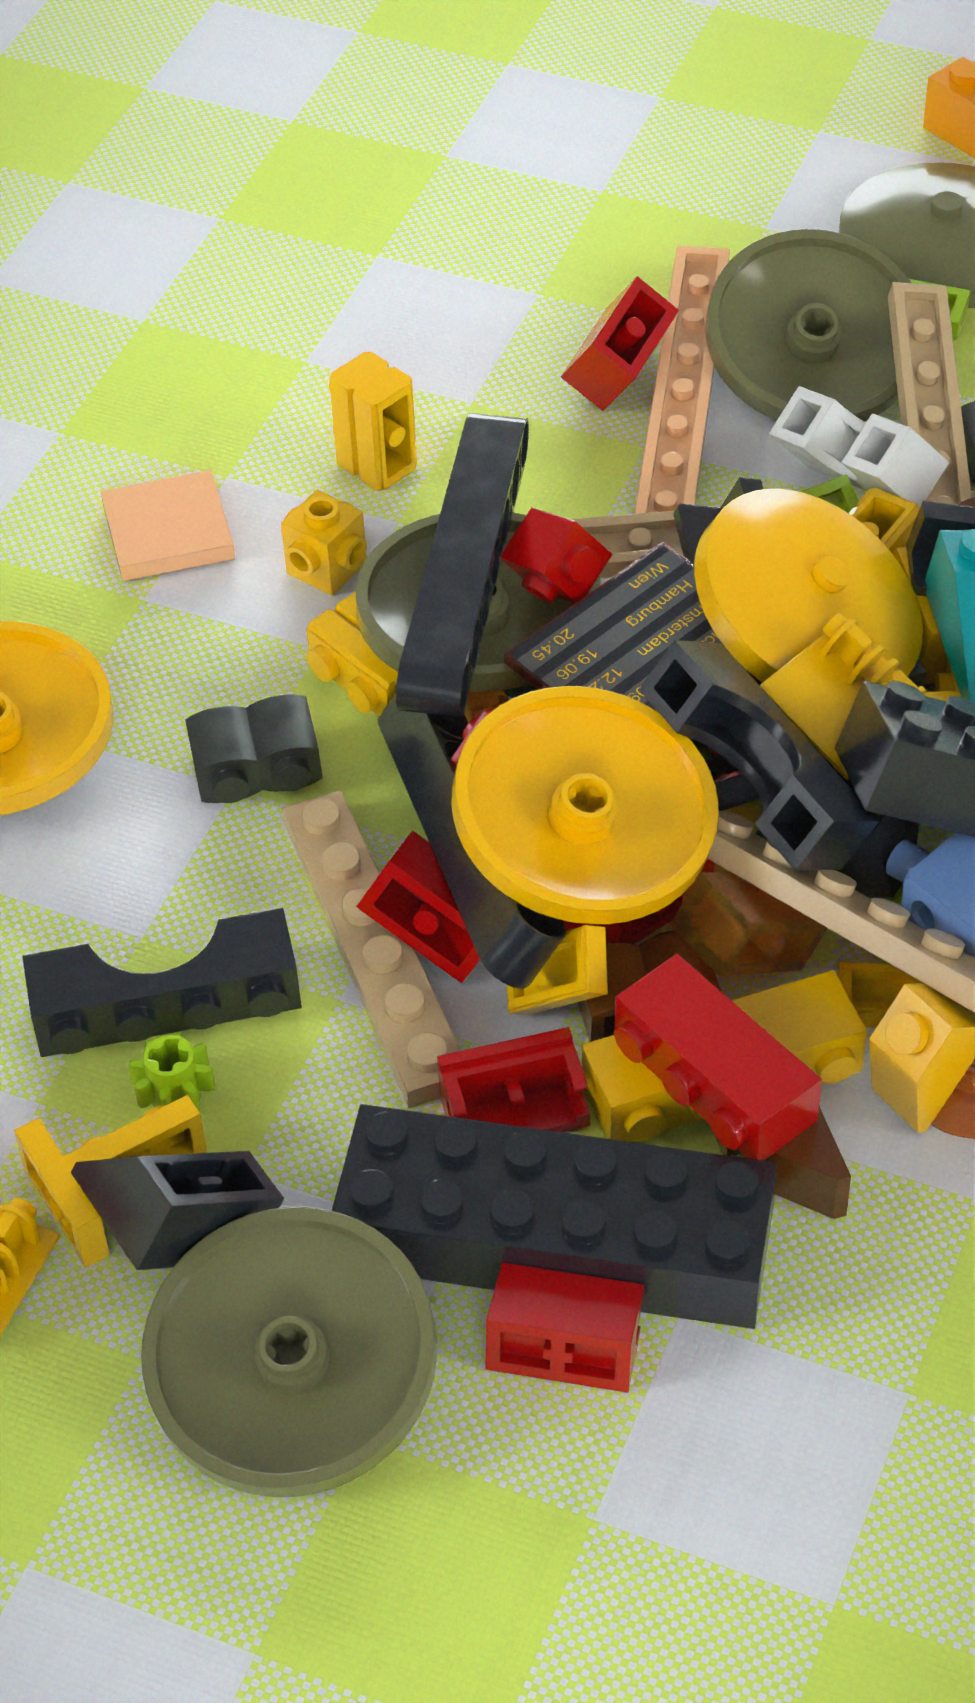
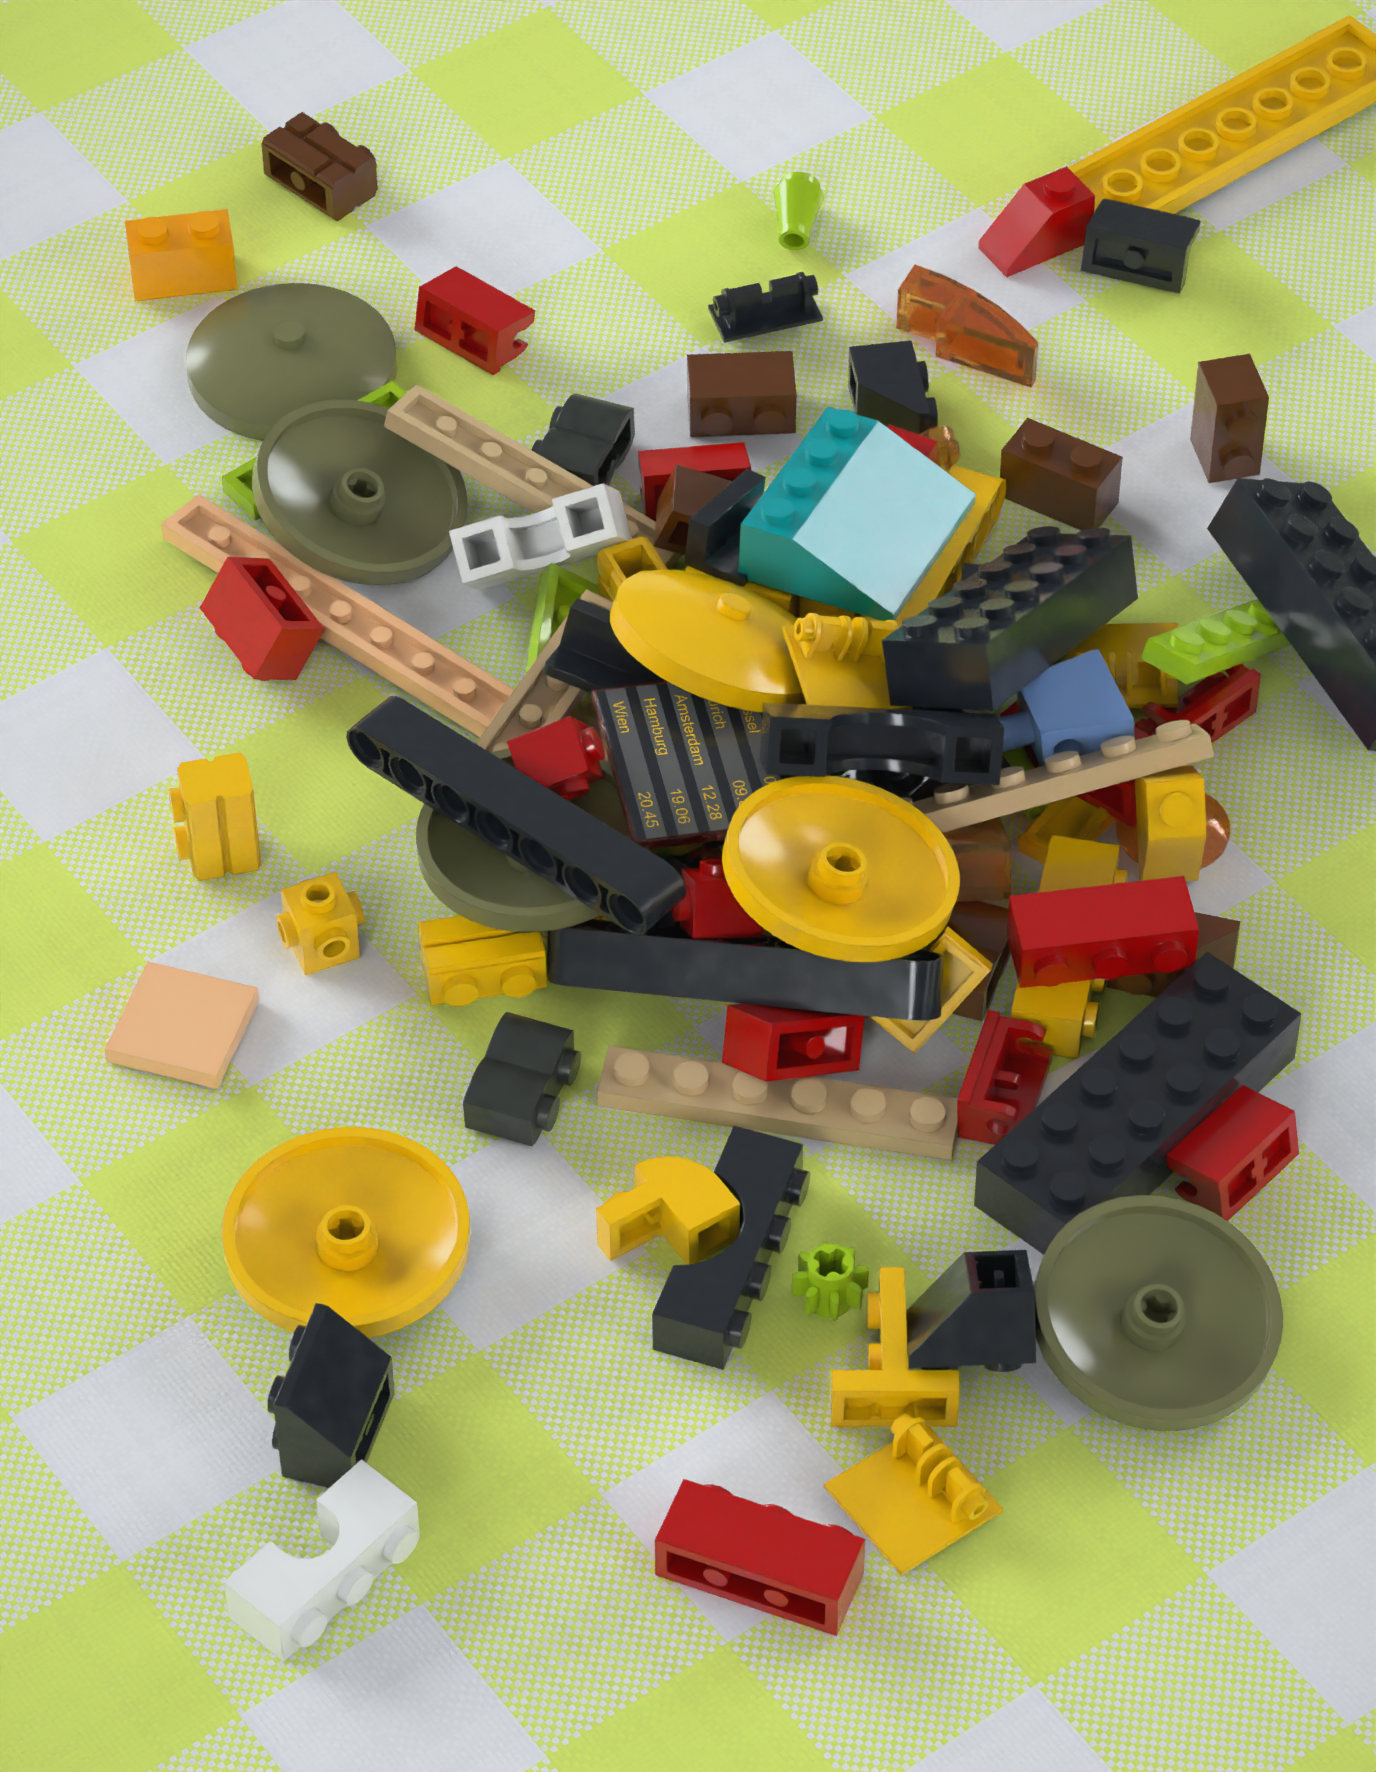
camera: 60 degrees left, 0 degrees up
(172, 914) = (673, 1200): none -> yellow brick

